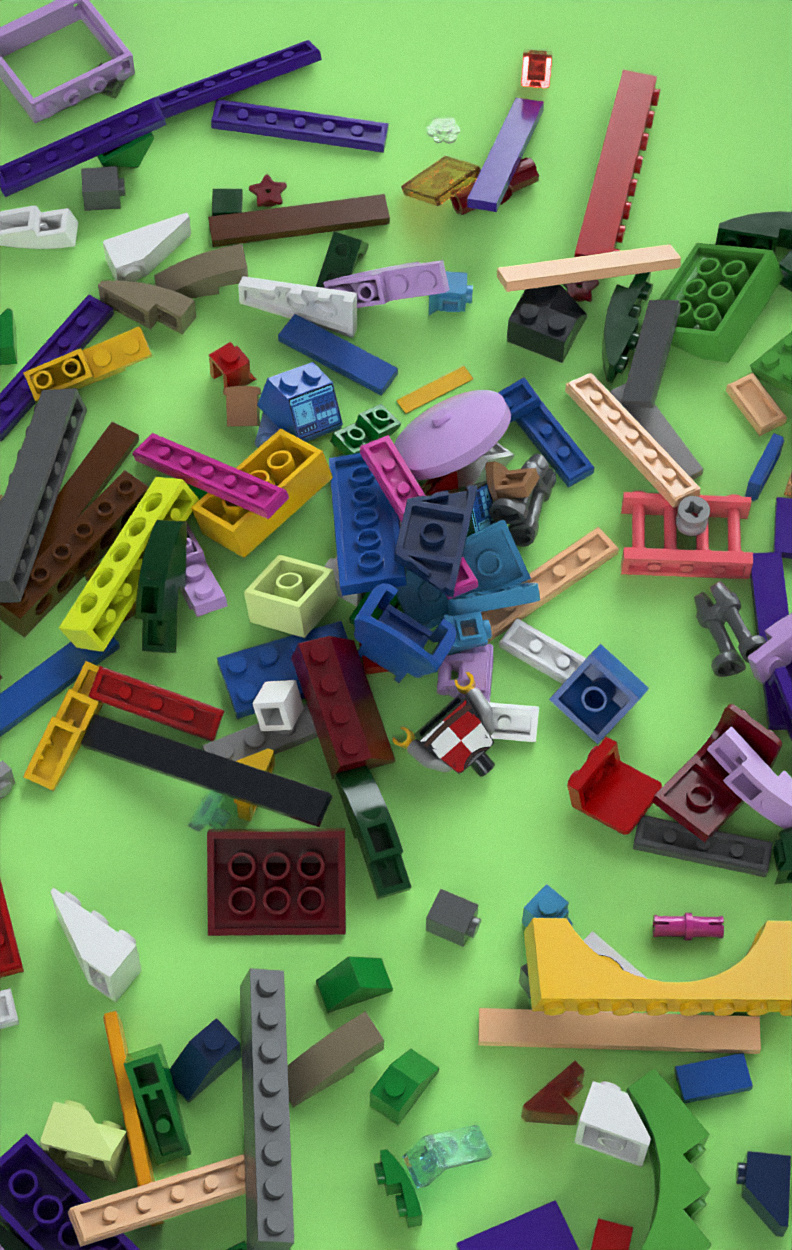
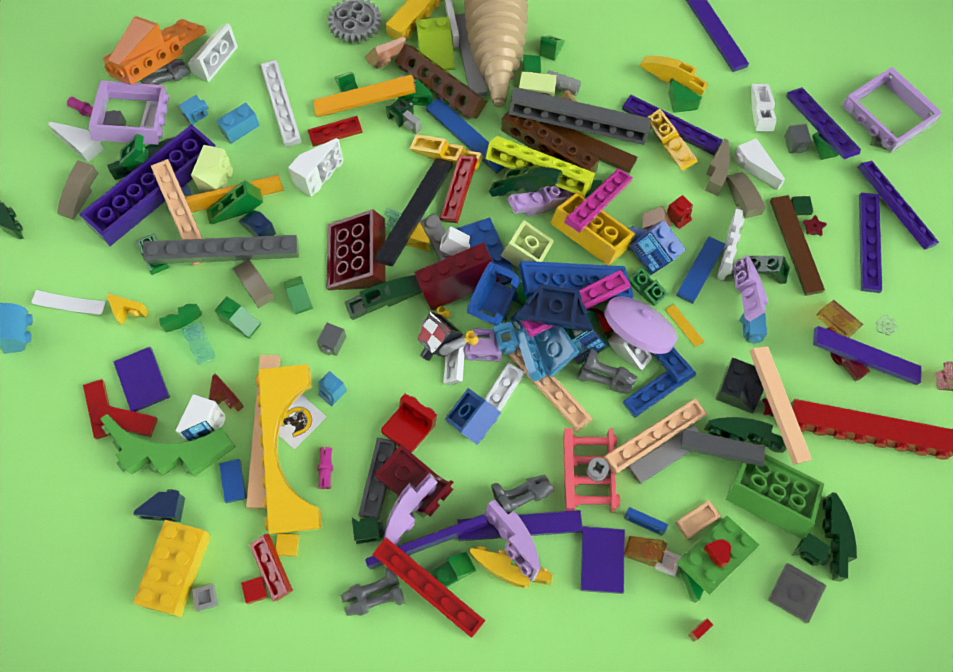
camera: 90 degrees right, 5 degrees up
(509, 483) = (609, 357): medium nougat tile -> none

